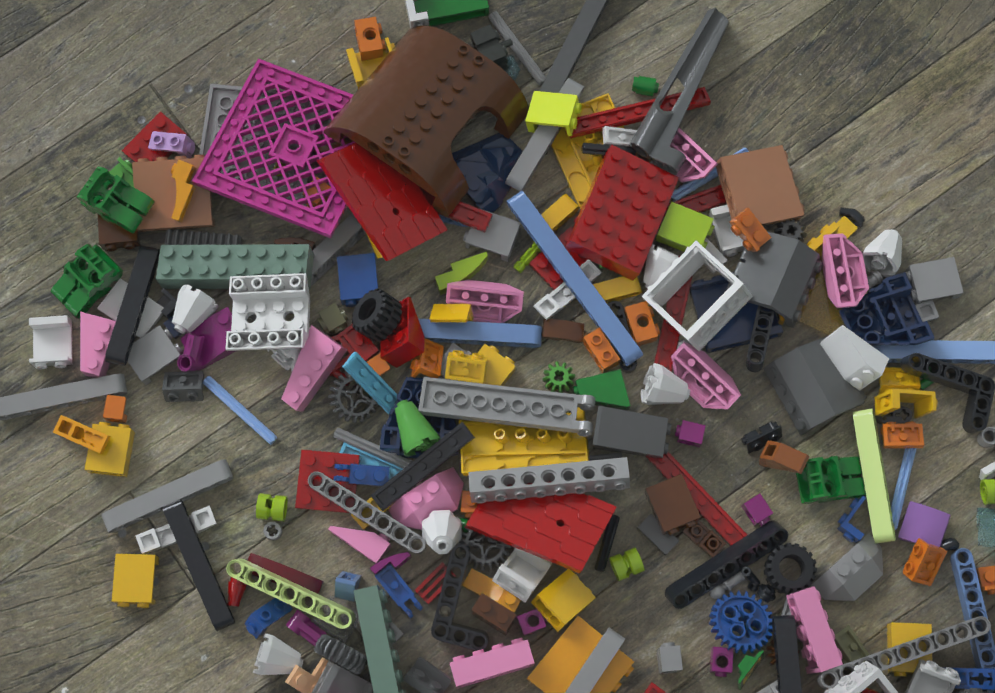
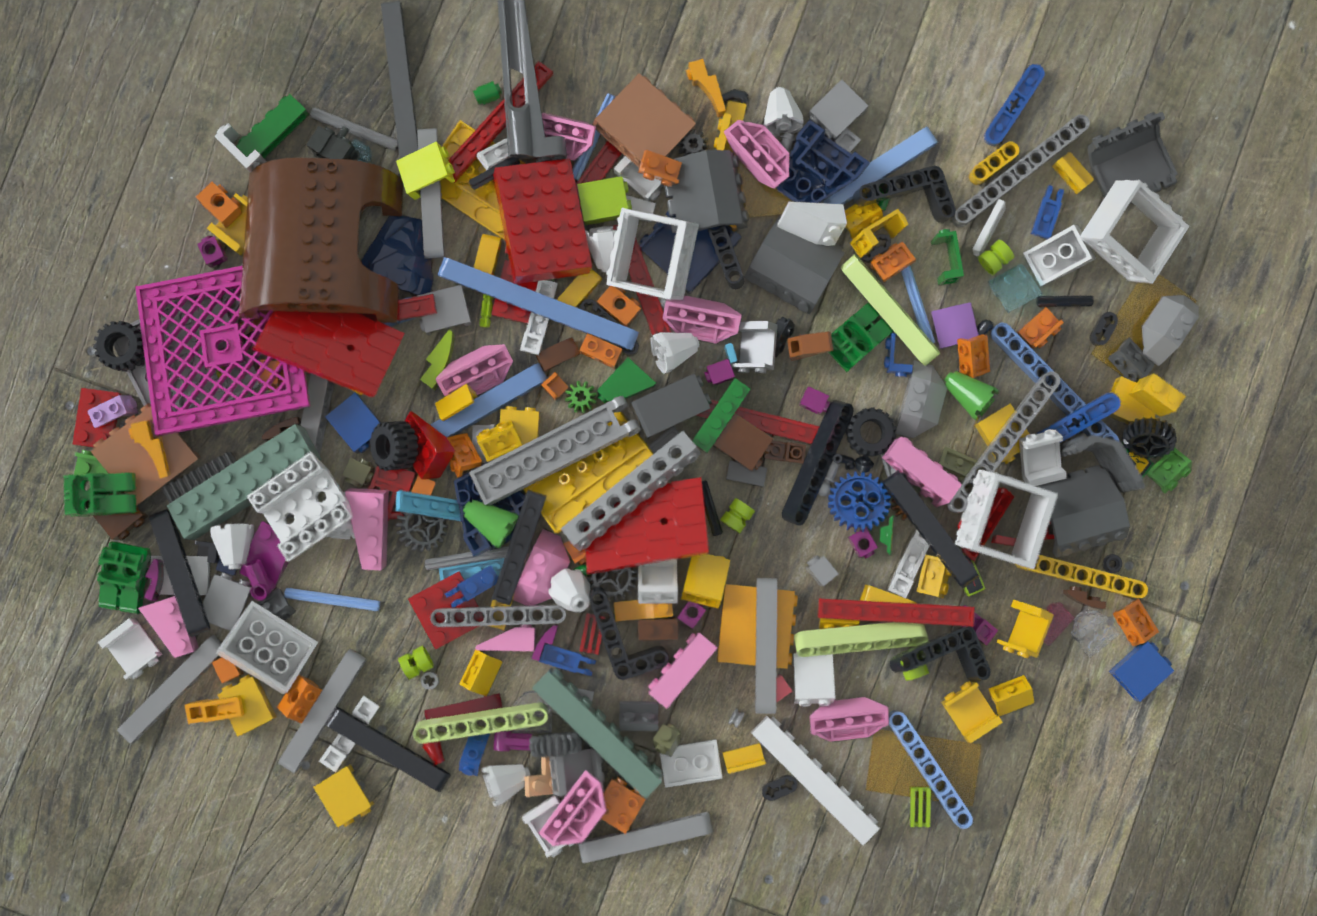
camera: 40 degrees left, 10 degrees up
(114, 294) = (156, 573): none -> magenta slope
(156, 472) = (299, 699): none -> orange brick
(159, 412) = (267, 647): none -> white slope
(205, 86) = (107, 339): none -> black tyre
(319, 553) = (480, 673): none -> yellow panel
(337, 78) = (217, 257): none -> magenta brick
(345, 584) = (522, 684): medium blue slope -> none
(542, 354) = (555, 386): none -> orange panel
(680, 463) = (721, 415): none -> green brick
(710, 424) = (730, 352): none -> medium azure tile
(737, 431) = (757, 346): none -> panel
(835, 191) = (709, 84): none -> light orange slope
(901, 593) = (971, 393): none -> bright green cone
(947, 480) = (956, 272): none -> green panel

